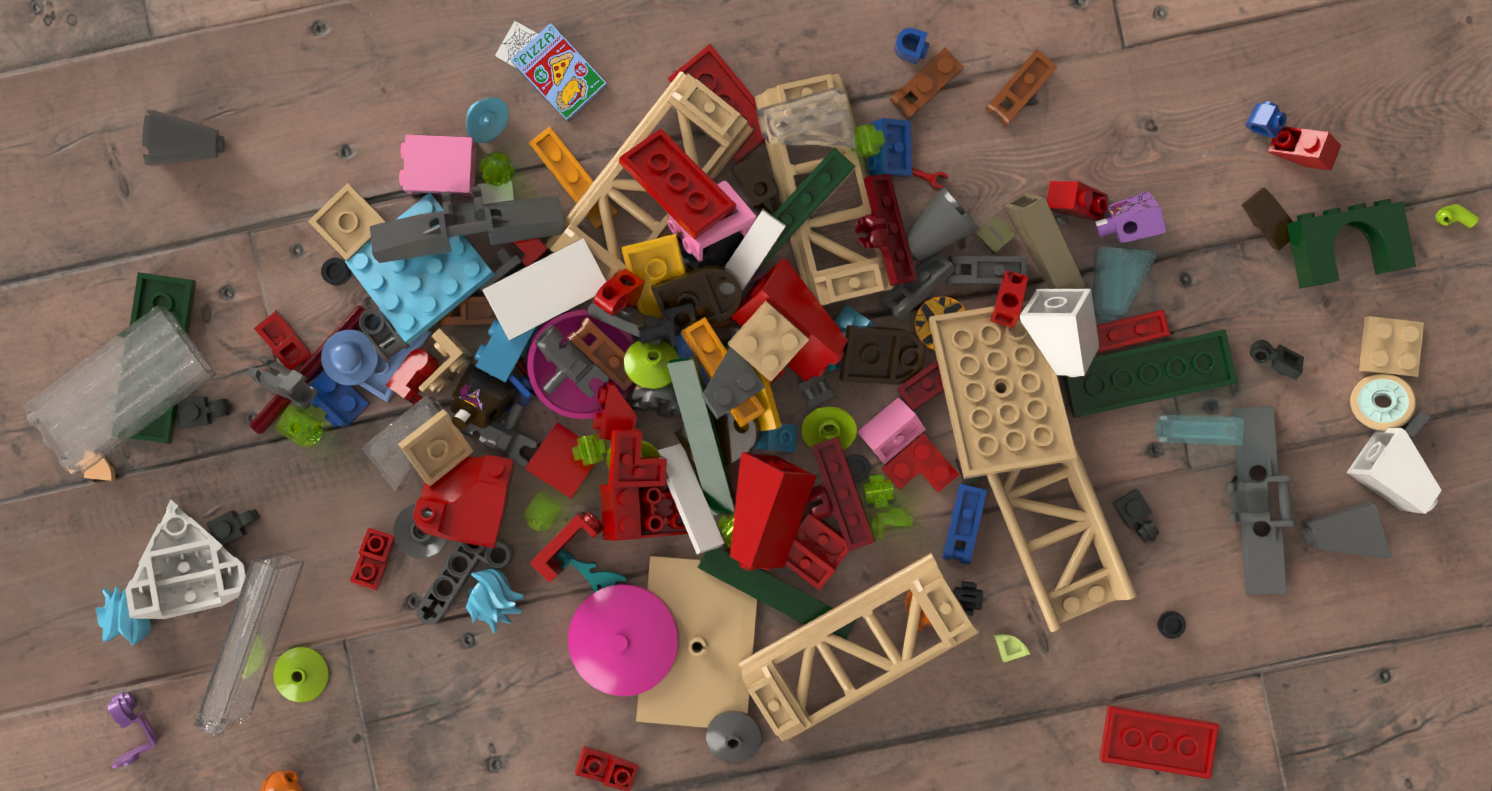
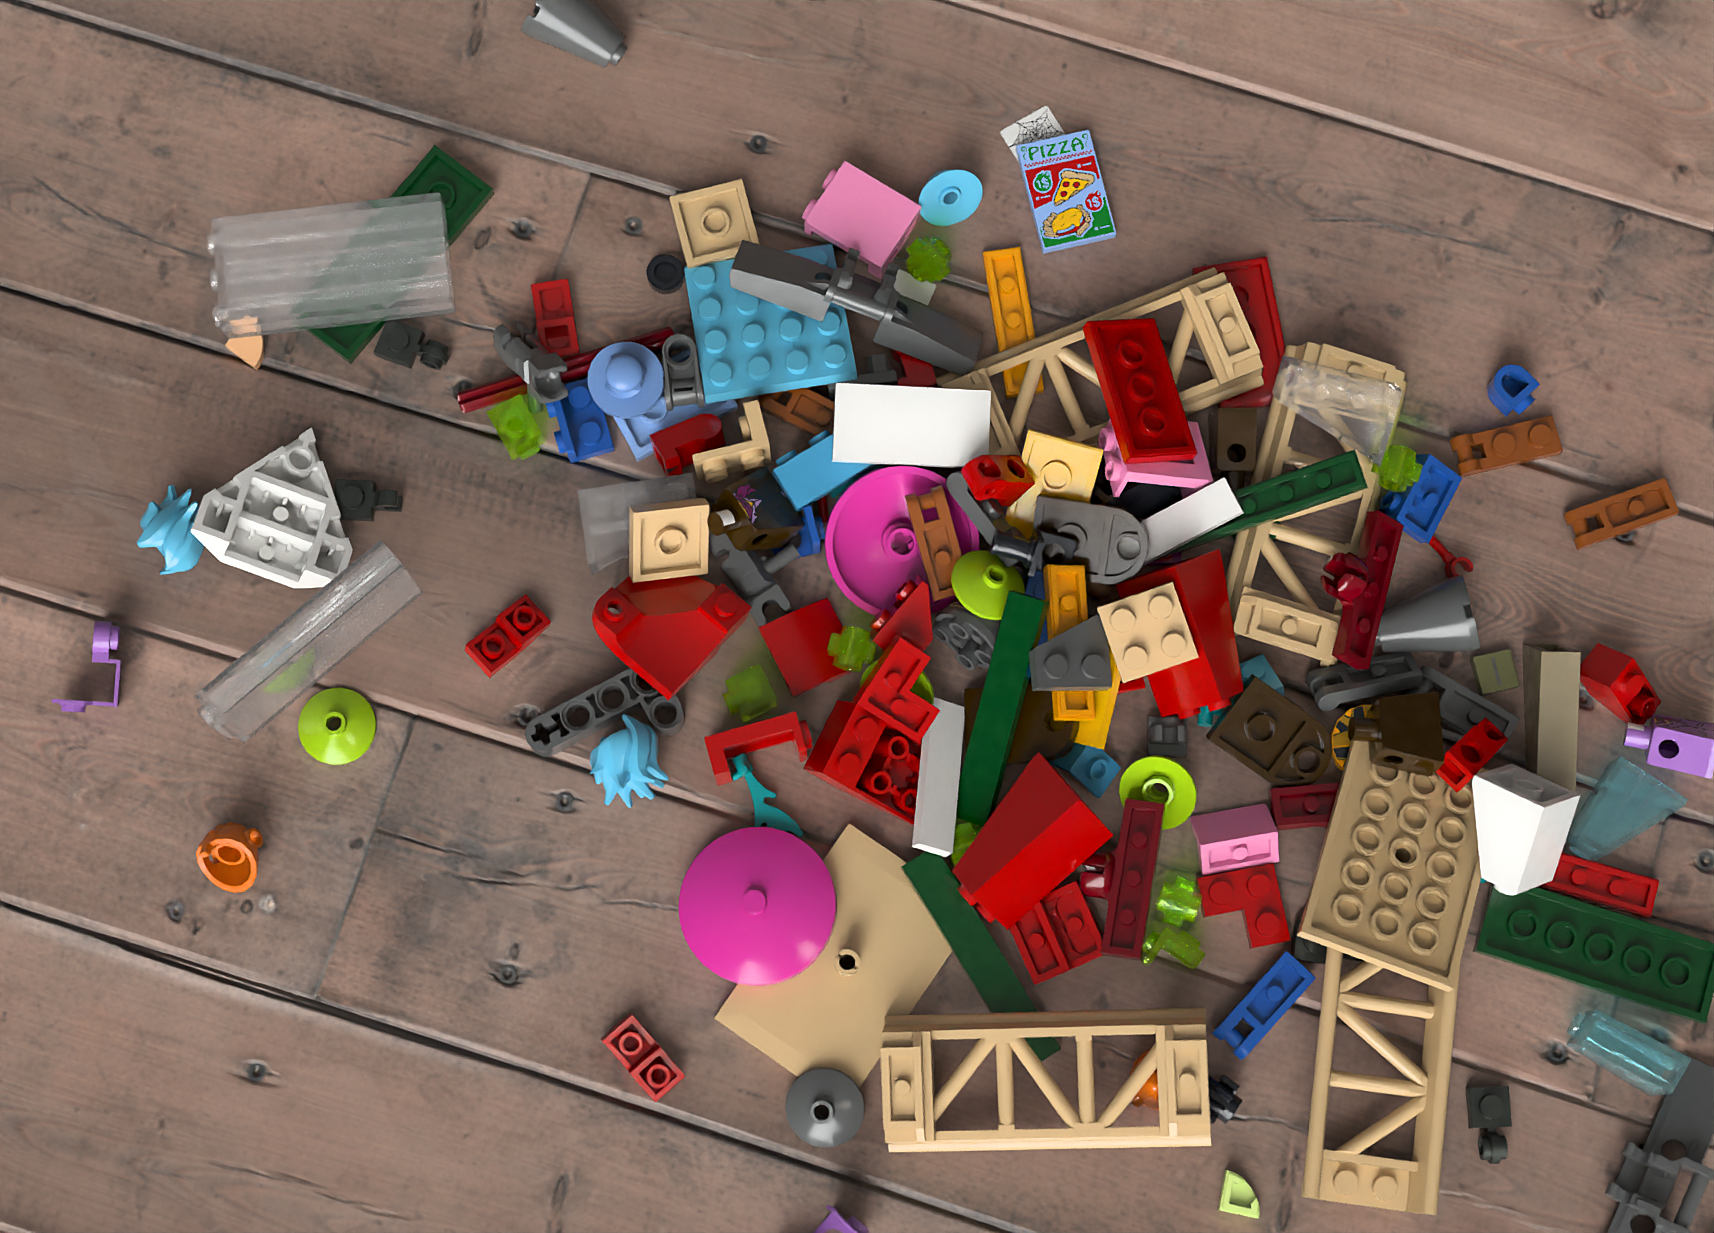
camera: 25 degrees right, 10 degrees down
(411, 540) = (567, 635): dark grey dish -> none
(569, 361) = (890, 527): dark grey piece -> none
(859, 467) = (1170, 861): black tile -> none
(960, 310) = (1403, 733): none -> dark brown torso

